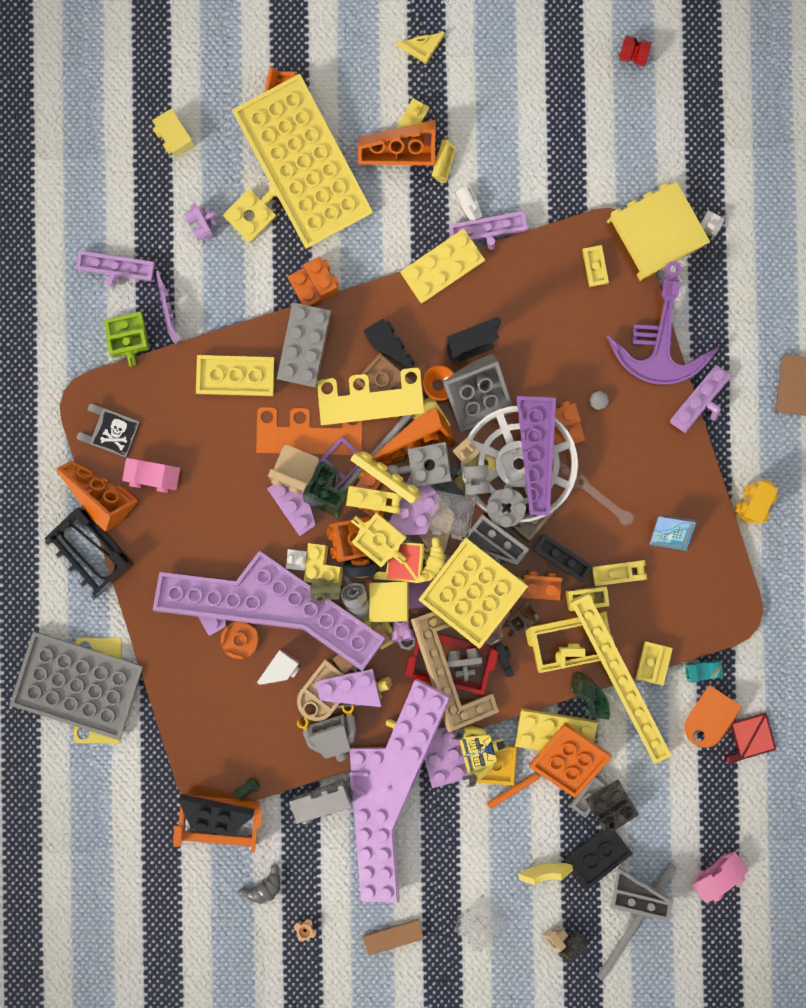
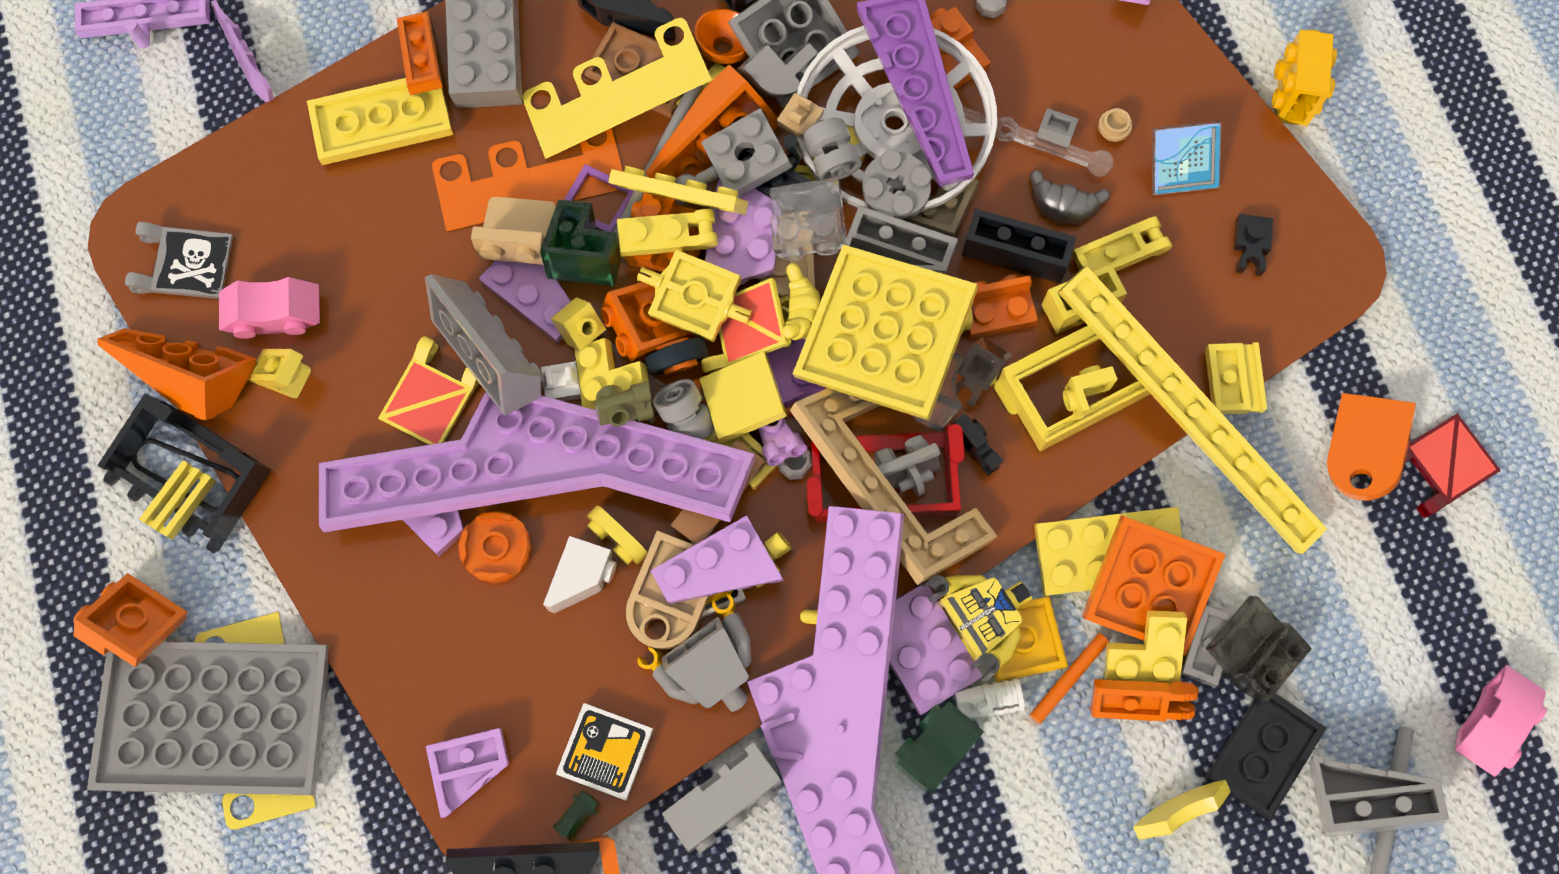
camera: 15 degrees left, 15 degrees down
(45, 626) = (128, 620): none -> orange plate
(69, 579) = (173, 495): none -> light yellow tile
(126, 336) = (182, 110): lime plate -> none
(148, 511) = (281, 371): none -> light yellow slope
(198, 749) = (465, 766): none -> lavender wing
(223, 549) = (427, 400): none -> coral flag
(260, 533) = (483, 344): none -> light grey slope
(266, 342) = (419, 53): none -> orange tile
(269, 761) = (605, 751): none -> tile
(298, 647) = (603, 526): none -> light yellow plate
(313, 532) = (578, 323): none -> light yellow plate
(434, 808) = (939, 748): none -> clear green brick
(461, 421) = (771, 75): none -> light grey brick
(474, 793) = (991, 699): none -> white hinge
(546, 814) = (1143, 700): none -> orange hinge
(558, 796) = (1157, 658): none -> light yellow plate
(594, 699) = (1149, 459): clear green brick -> none
(598, 536) = (1065, 203): none -> flat silver piece
(608, 491) = (1057, 128): none -> light grey tile
(641, 498) = (1115, 125): none -> tan plate
(694, 585) = (1254, 239): none -> black plate
(703, 670) = (1323, 371): teal leg -> none

